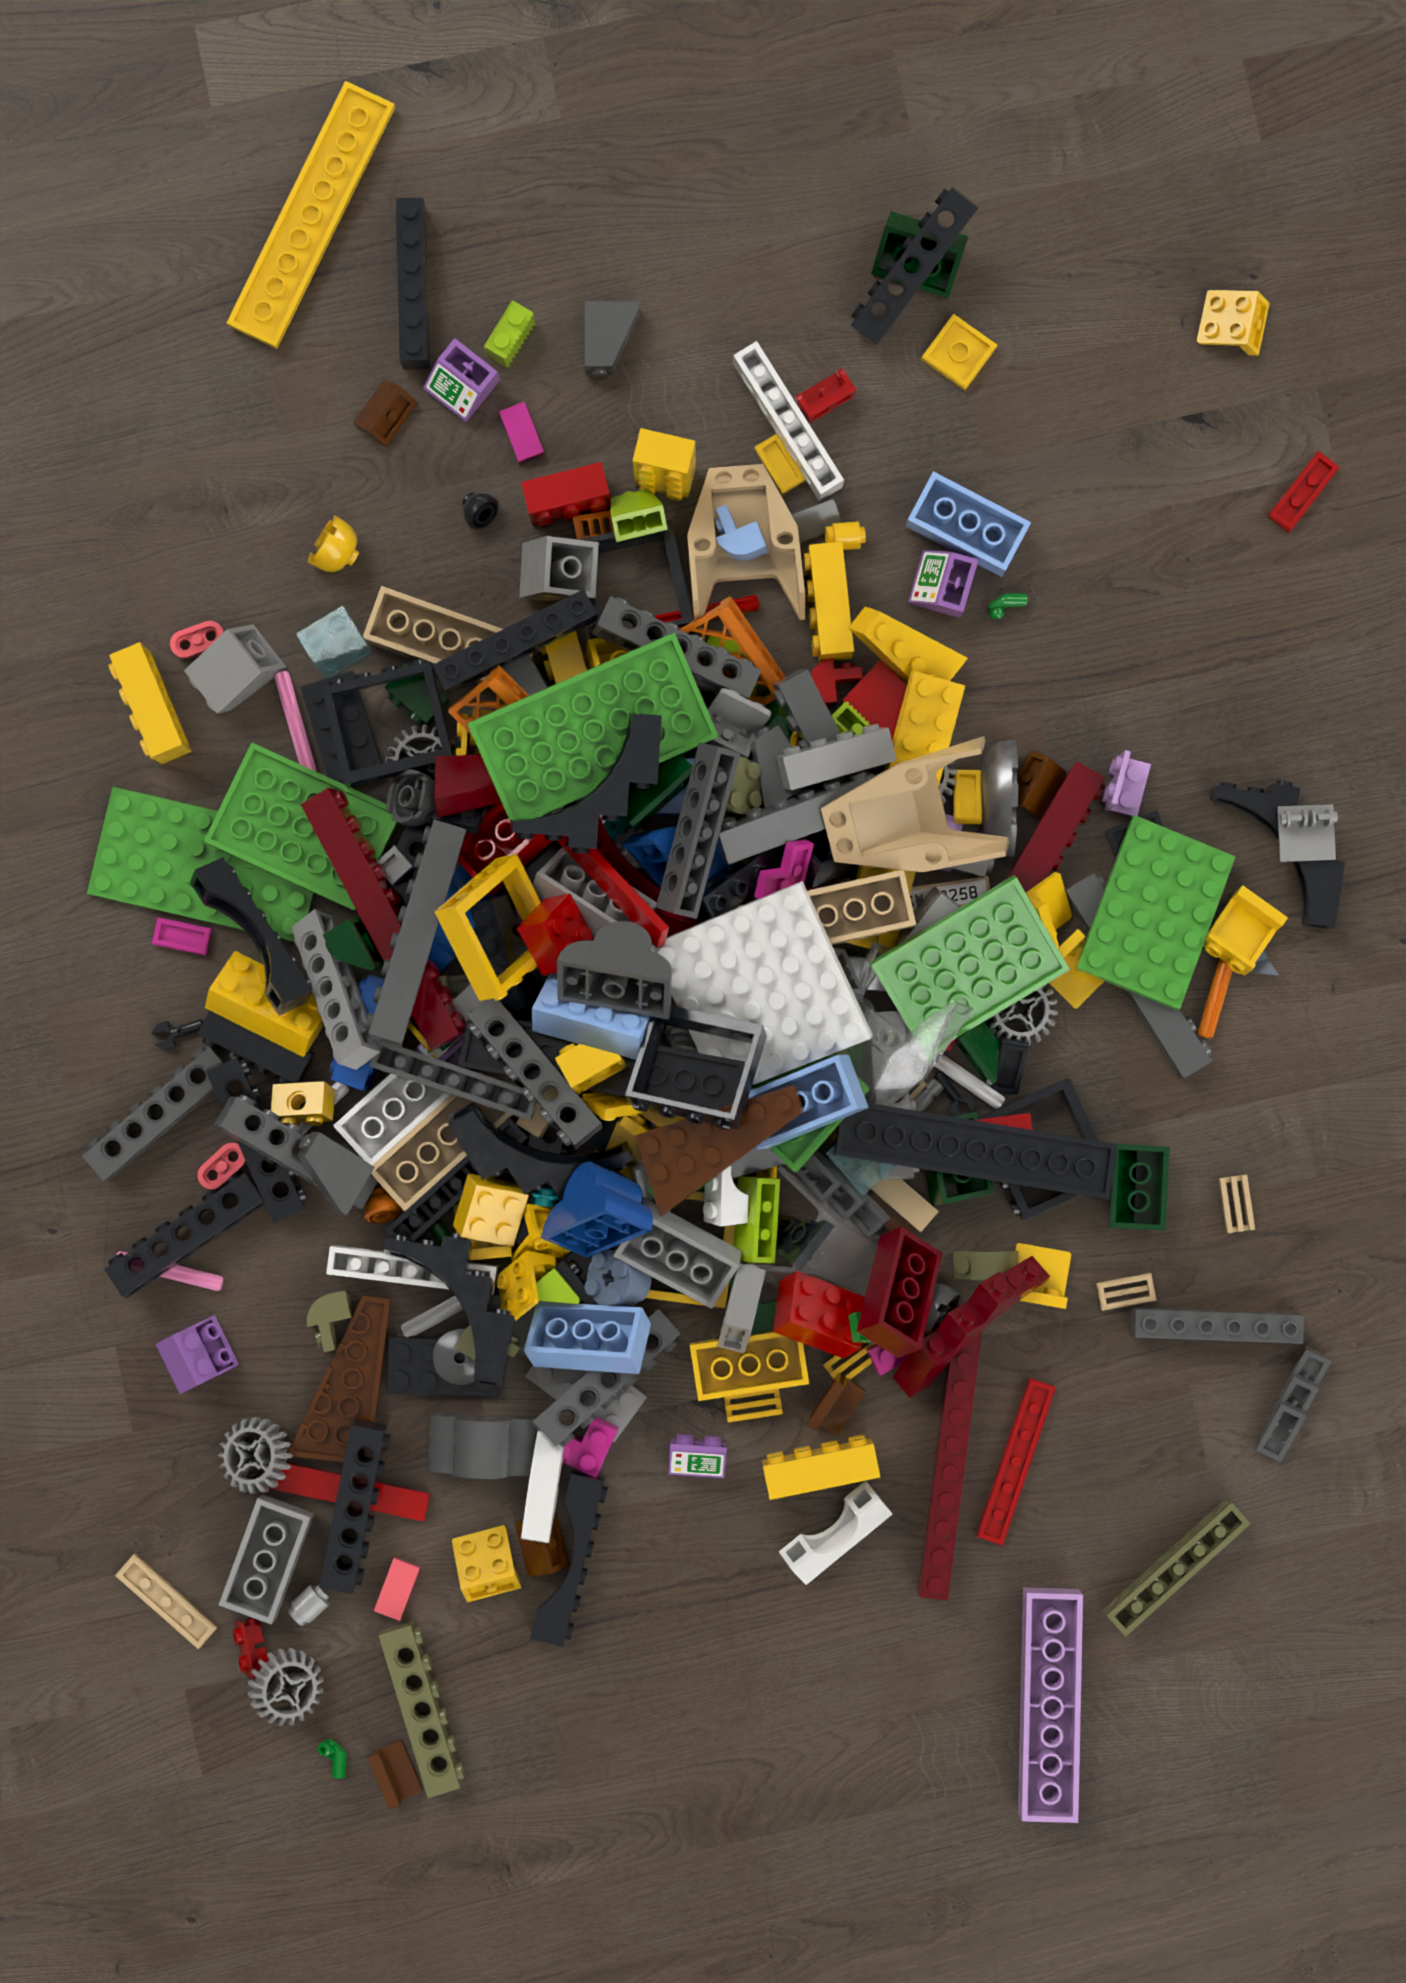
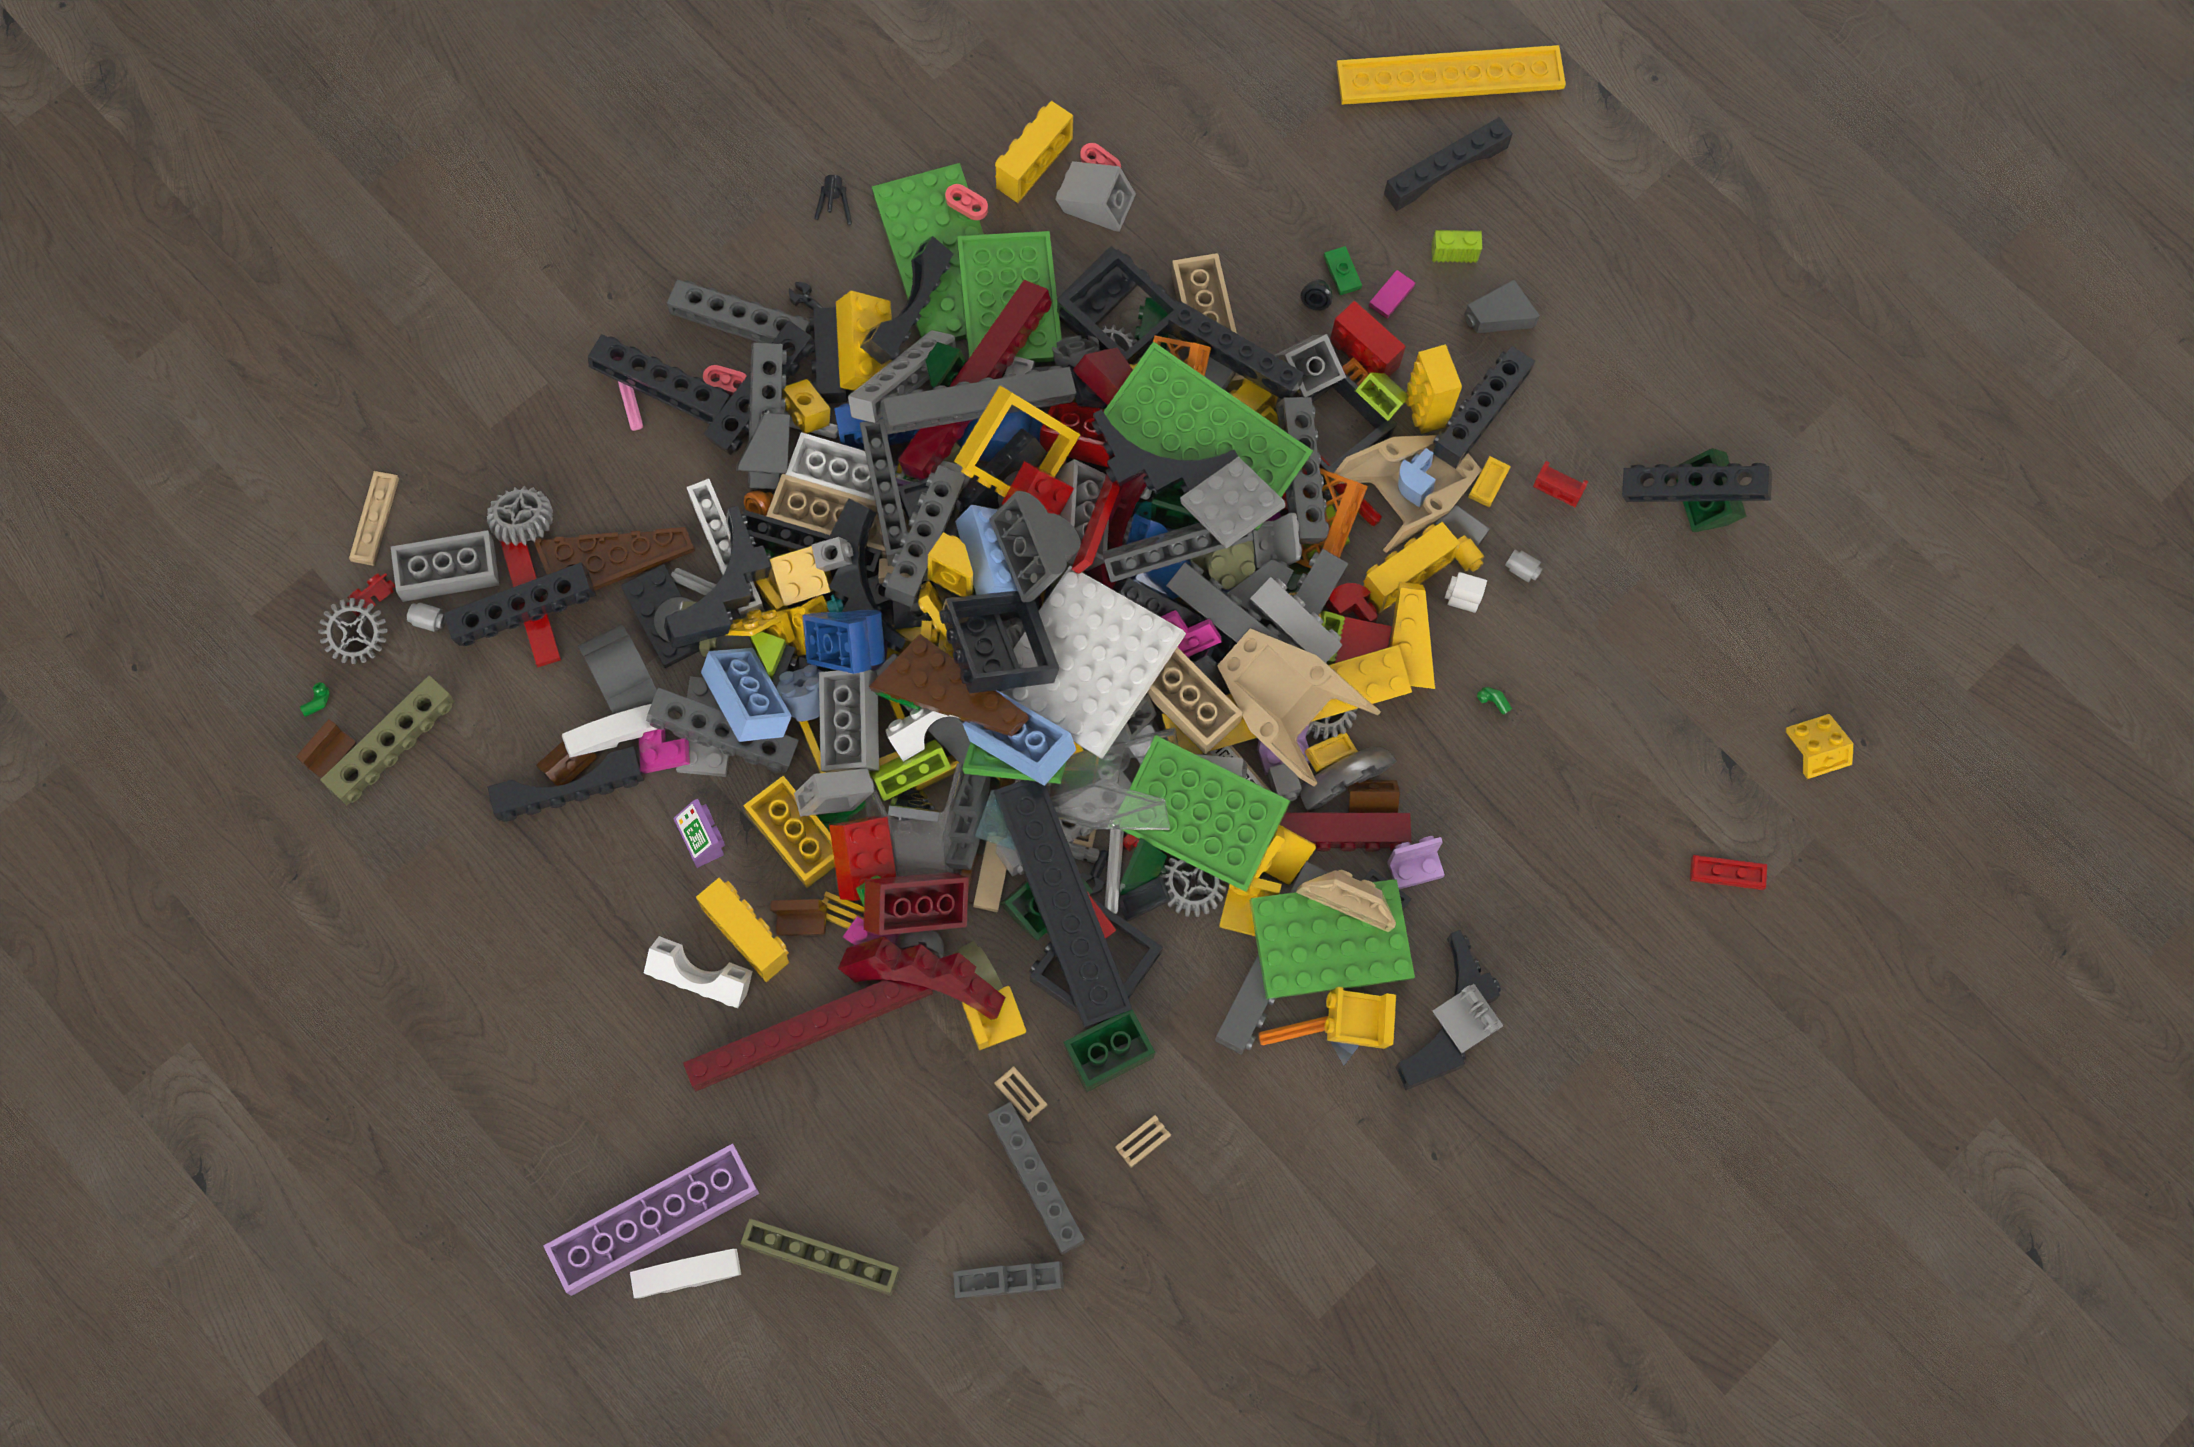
camera: 55 degrees right, 15 degrees down
(65, 935) = (832, 190): none -> black plant
(168, 807) = (968, 202): none -> coral plate
(182, 936) = (879, 266): dark pink tile -> none
(197, 1354) = (574, 437): medium lavender slope -> none
(294, 720) = (1084, 256): bright pink axle -> none
(324, 1312) = (655, 508): olive brick -> none
(333, 642) = (1157, 249): clear light blue hinge -> none
(335, 546) = (1225, 212): yellow cylinder -> none
(385, 412) = (1345, 197): reddish brown panel -> none
(397, 1588) = (473, 675): coral tile -> none
(461, 380) = (1401, 231): medium lavender slope -> none
(466, 466) = (1342, 270): none -> green plate
(485, 1564) = (525, 727): yellow bracket -> none
(493, 1184) = (823, 550): none -> light grey brick
(680, 358) = (1454, 450): none -> black brick
(693, 752) = (1232, 502): none -> light grey plate
(751, 1415) = (752, 841): yellow tile -> none
(788, 421) = (1523, 465): white brick -> none
(887, 564) = (1465, 592): none -> white brick
(889, 488) = (1524, 565): none -> light grey brick
(943, 582) = (1480, 644): medium lavender slope -> none
(959, 352) = (1658, 561): yellow tile -> none
(967, 524) = (1535, 634): light blue brick -> none
(1015, 1461) = (834, 1085): red tile -> none
(1116, 1699) = (685, 1273): none -> white slope
(1132, 873) = (1350, 897): none -> tan wedge

